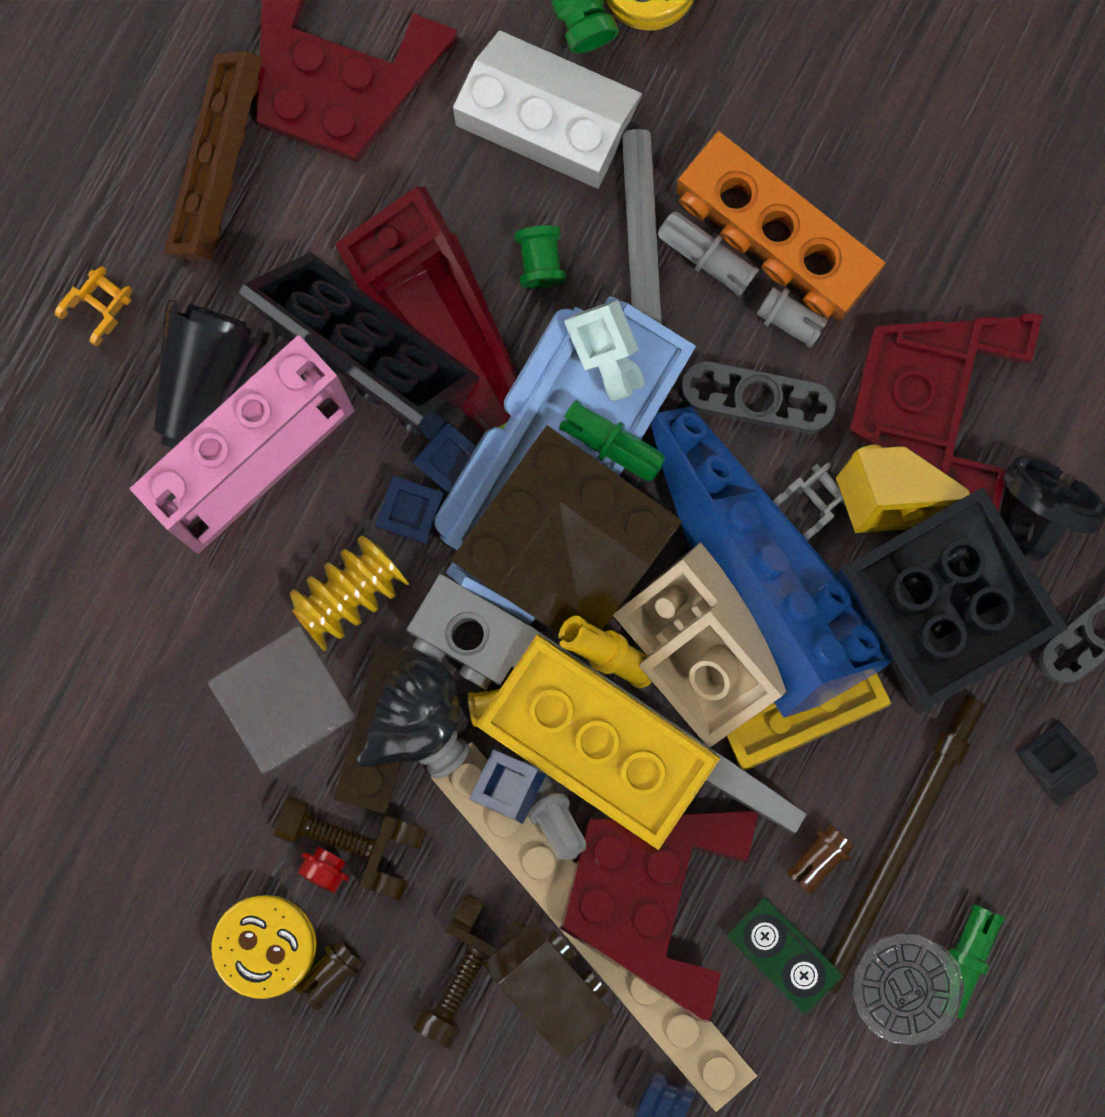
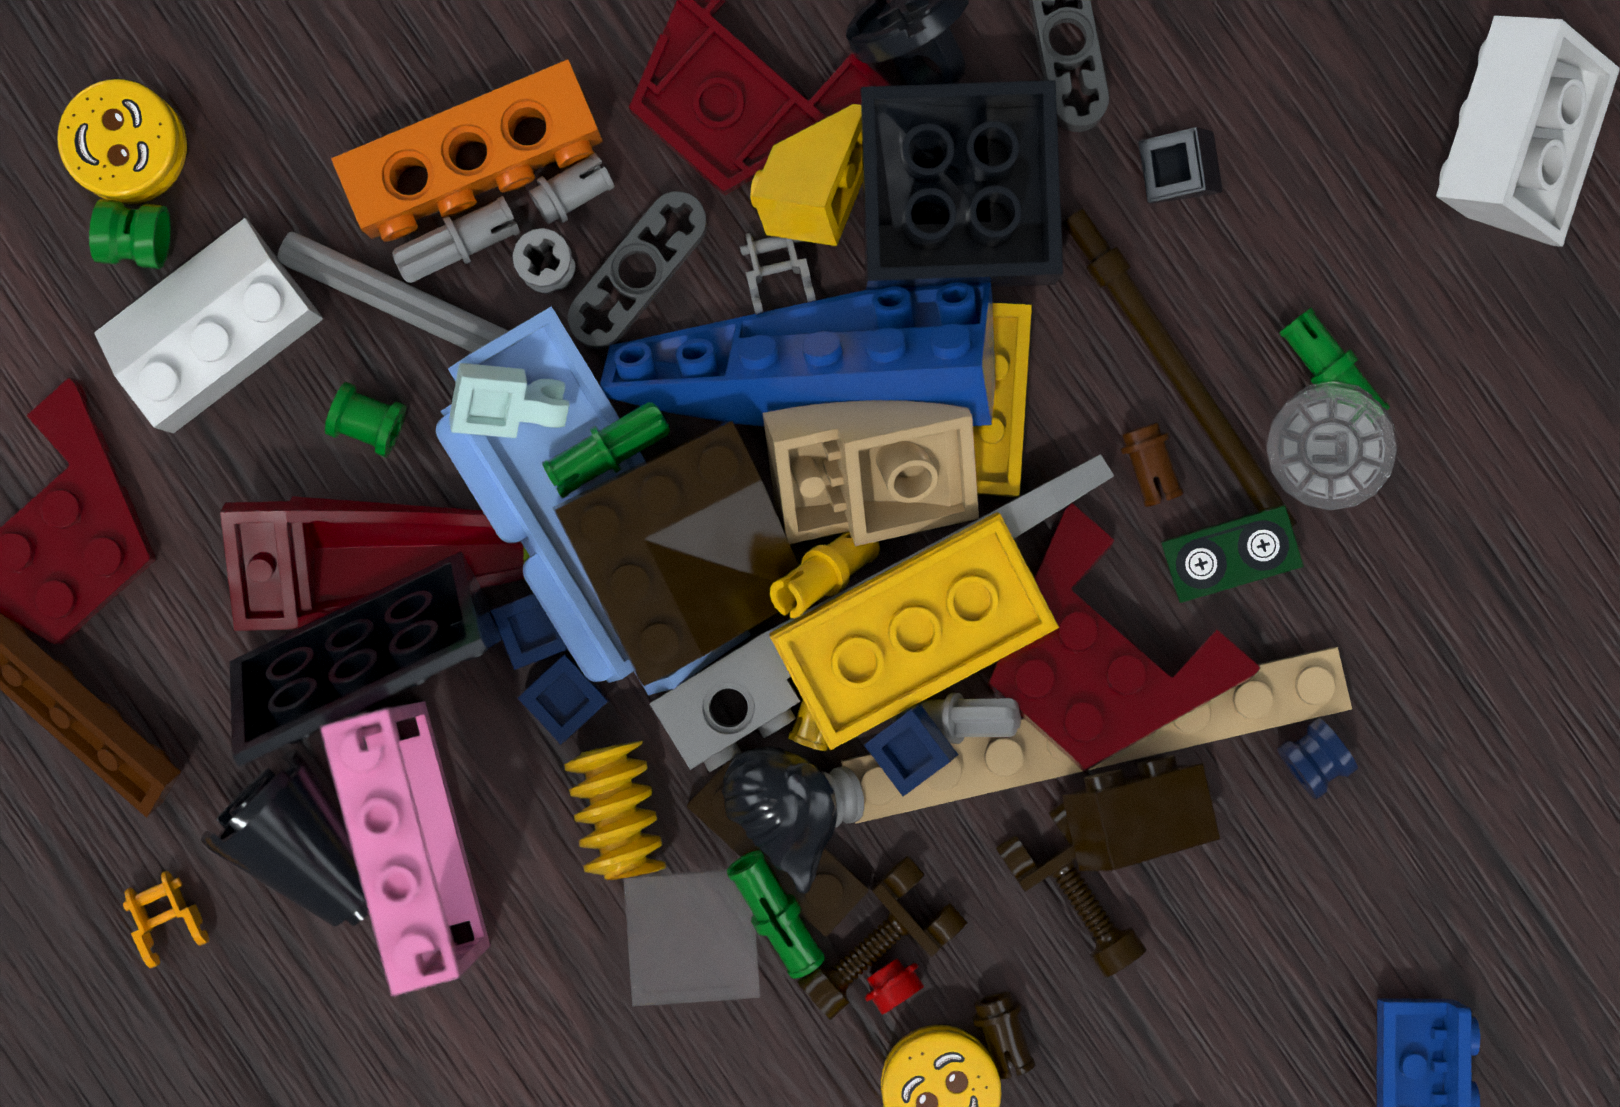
camera: 70 degrees left, 5 degrees up
(331, 752) = (775, 914): none -> green pin
(740, 317) = (539, 242): none -> light grey bush

